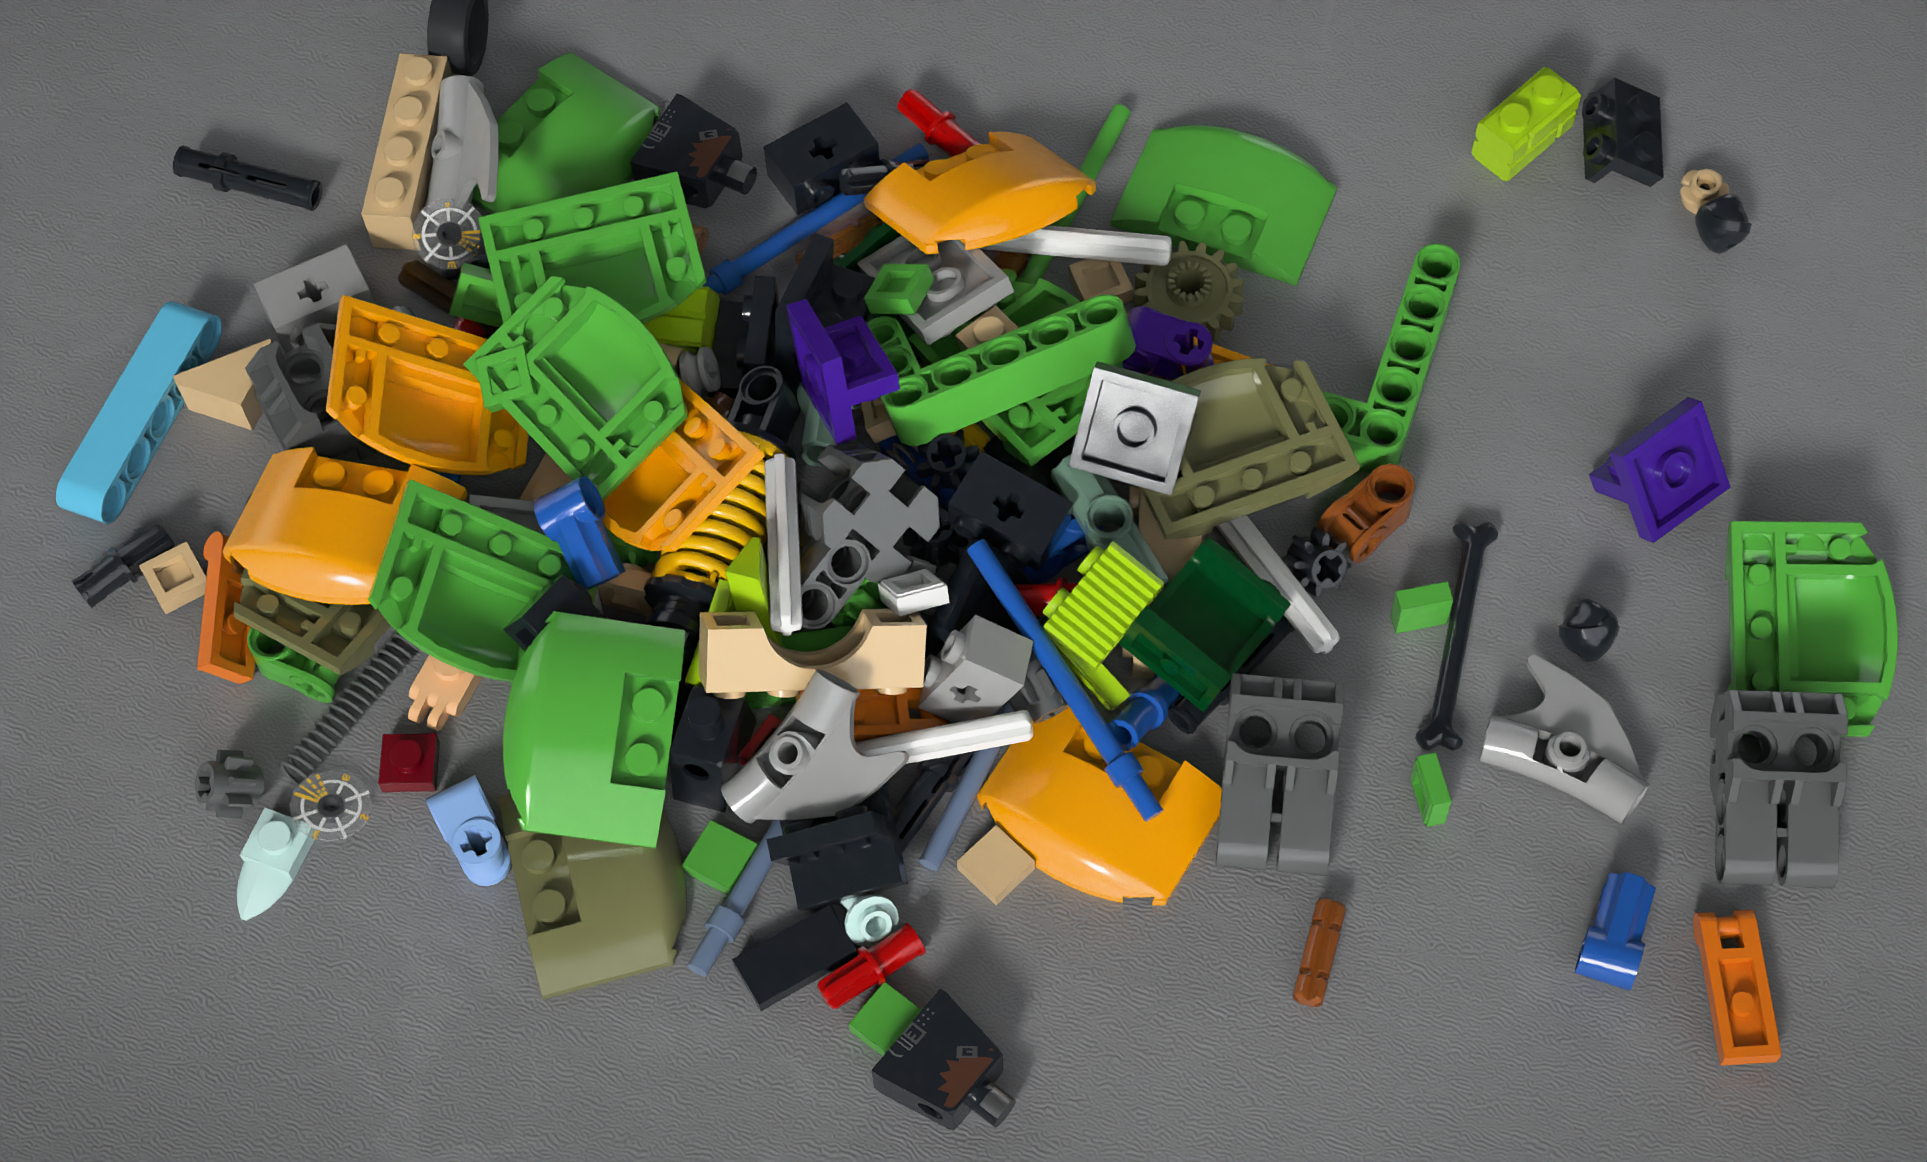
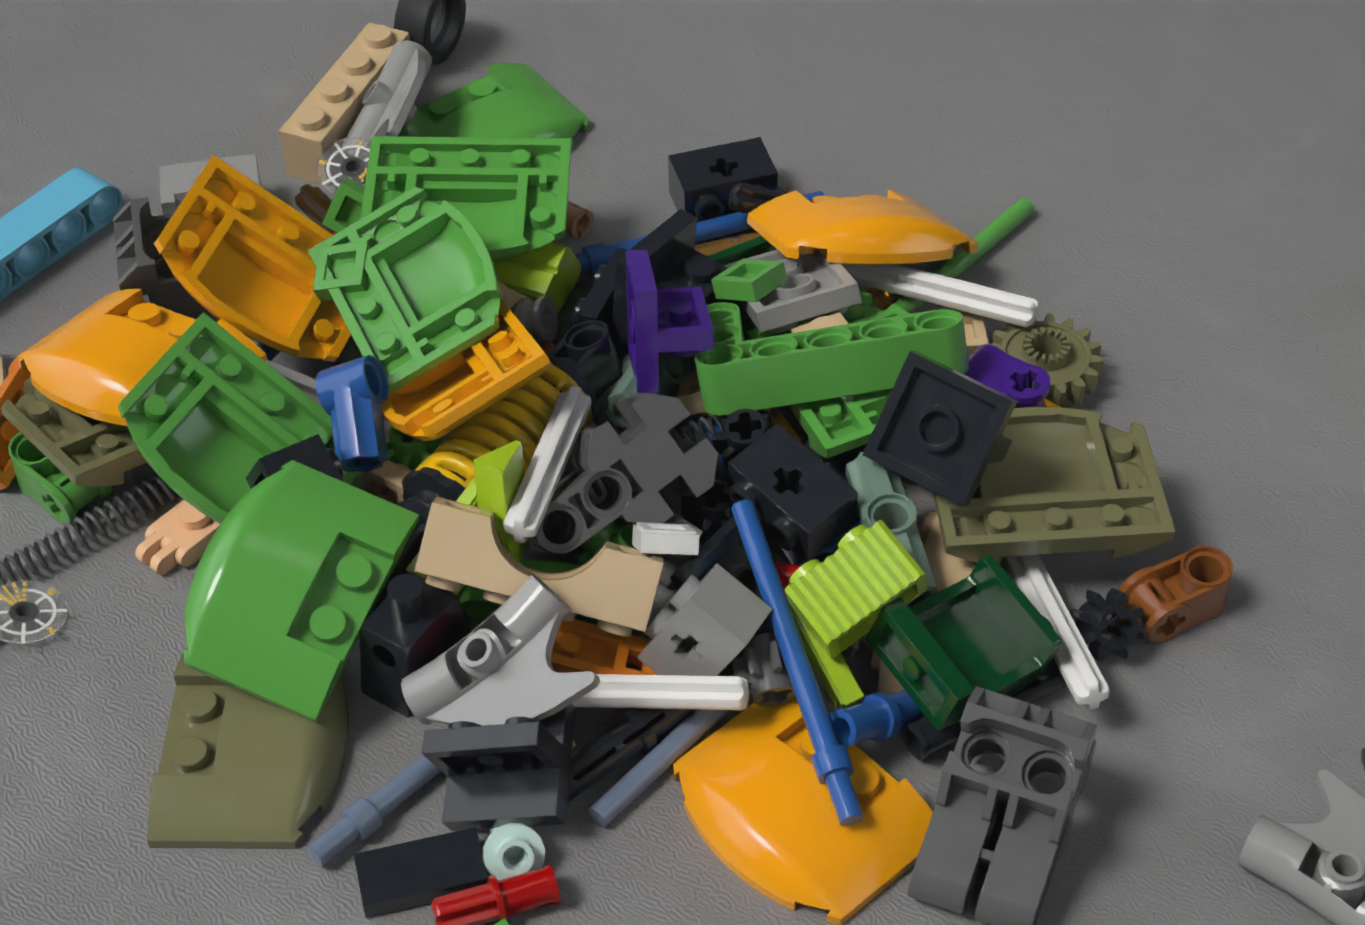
camera: 15 degrees right, 15 degrees down
(196, 165) = (184, 91): black pin -> none
(223, 388) = (89, 247): tan slope -> none
(409, 762) = (117, 594): dark red plate -> none
(469, 828) = (144, 666): light blue piece -> none
(698, 148) = (608, 156): black torso -> none
(719, 857) = (381, 753): bright green tile -> none
(938, 126) = (841, 178): red axle -> none
(996, 865) = (668, 836): tan tile -> none
(1228, 193) = (1123, 290): bright green slope -> none
(1396, 375) = (1252, 468): bright green beam -> none
(1421, 607) = (1211, 694): bright green tile -> none
(1430, 790) = (1172, 877): bright green tile -> none
(1440, 729) = (1201, 820): black piece -> none

